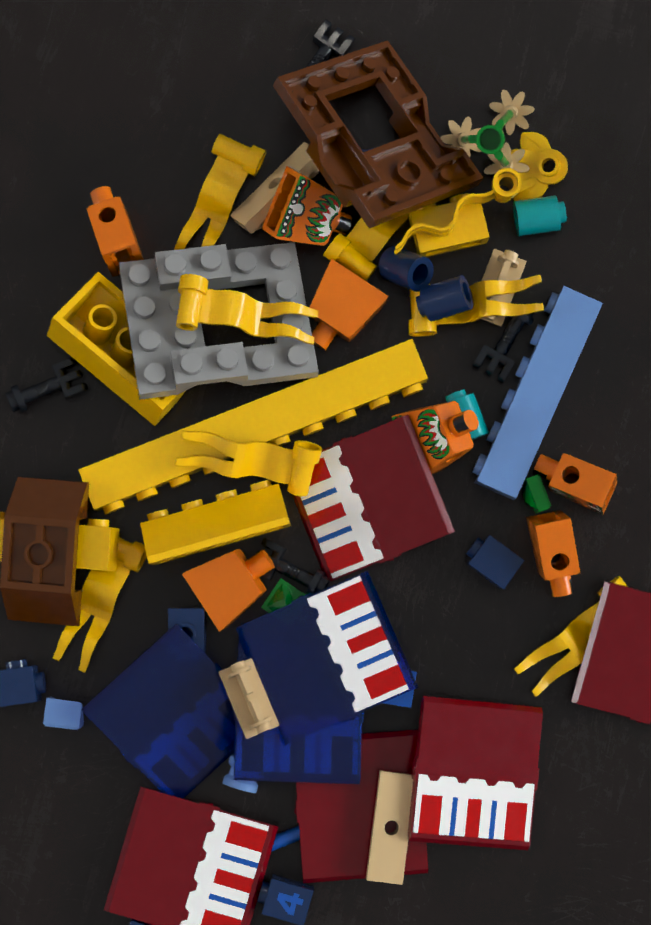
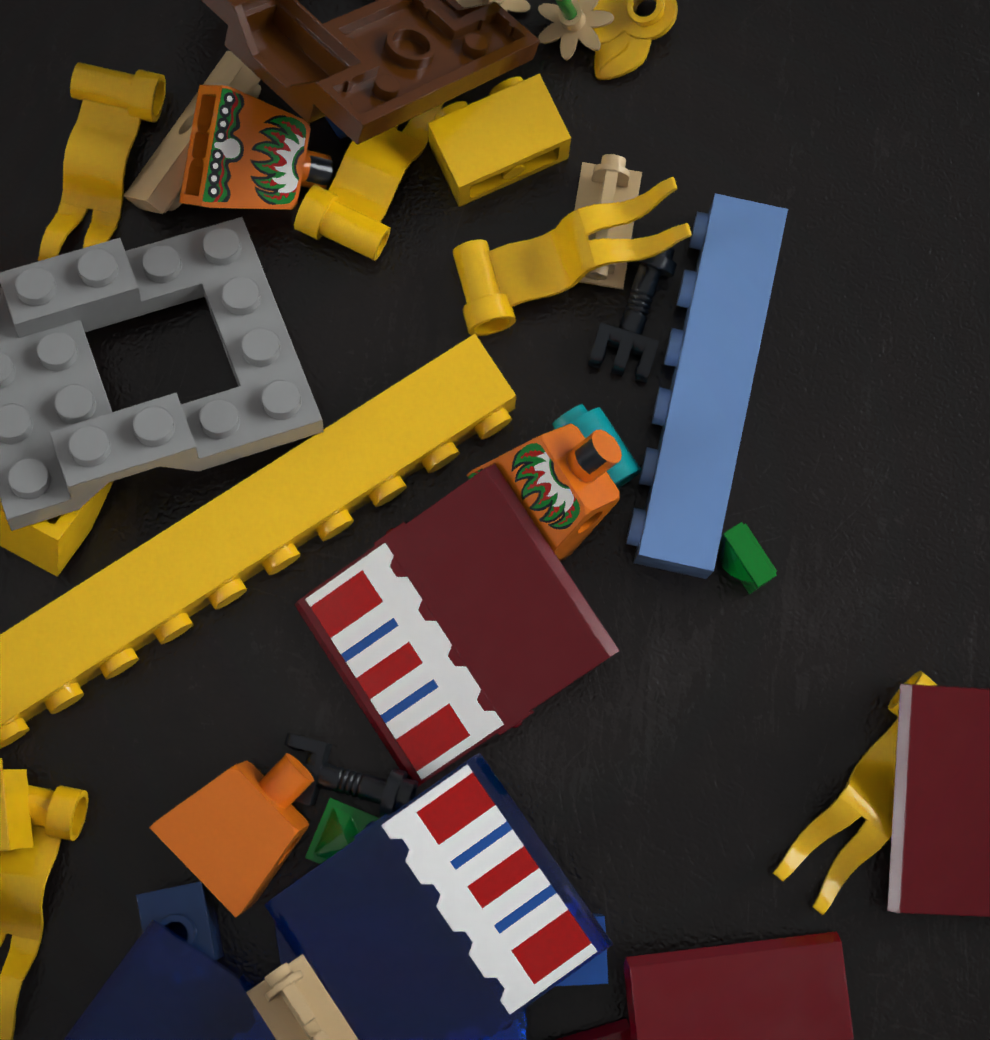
camera: 15 degrees left, 5 degrees down
(214, 524) = (190, 728): yellow slope -> none
(235, 309) = (153, 338): yellow flag -> none
(257, 459) = (245, 597): yellow flag -> none
(343, 305) = (345, 304): orange torso -> none
(406, 268) = (440, 220): dark blue brick -> none
(445, 298) = (517, 253): dark blue brick -> none
(493, 561) = (697, 690): dark blue brick -> none
(506, 177) = (579, 39): yellow flag -> none
(538, 215) = (645, 91): teal brick -> none
(551, 535) = (784, 628): orange torso -> none
(591, 489) = (840, 525): orange torso -> none

